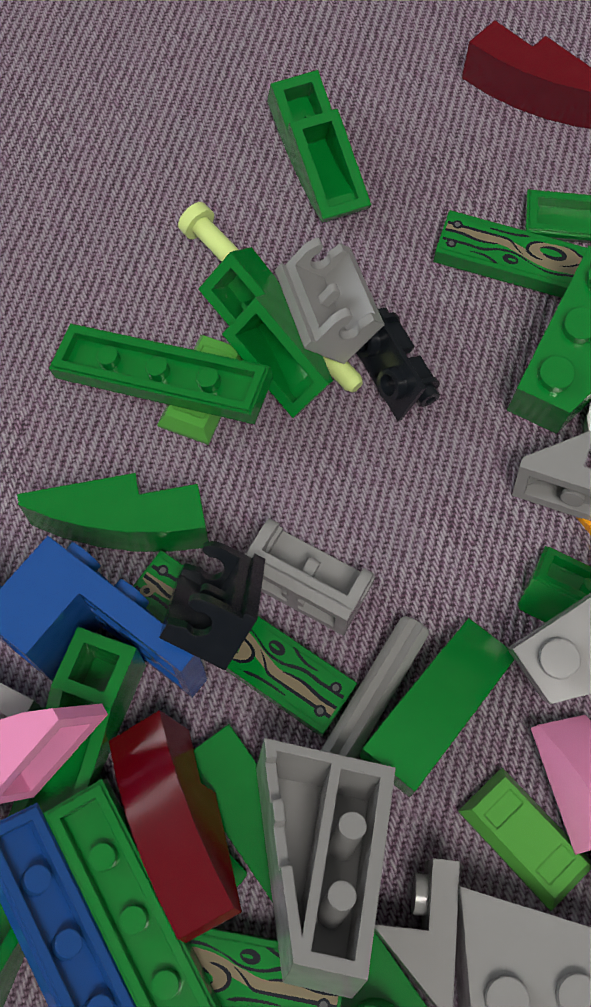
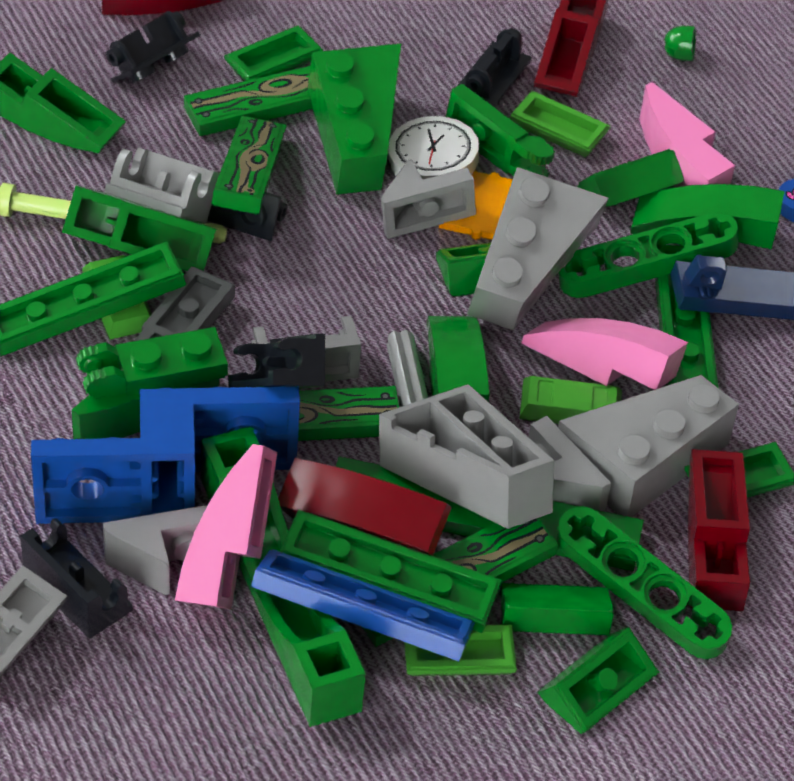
camera: 45 degrees left, 20 degrees down
(128, 502) = (153, 363): none -> green hinge
(229, 453) = (190, 306): none -> dark grey hinge
(425, 331) = (249, 165): none -> green tile
(441, 142) = (137, 57): none -> black hinge

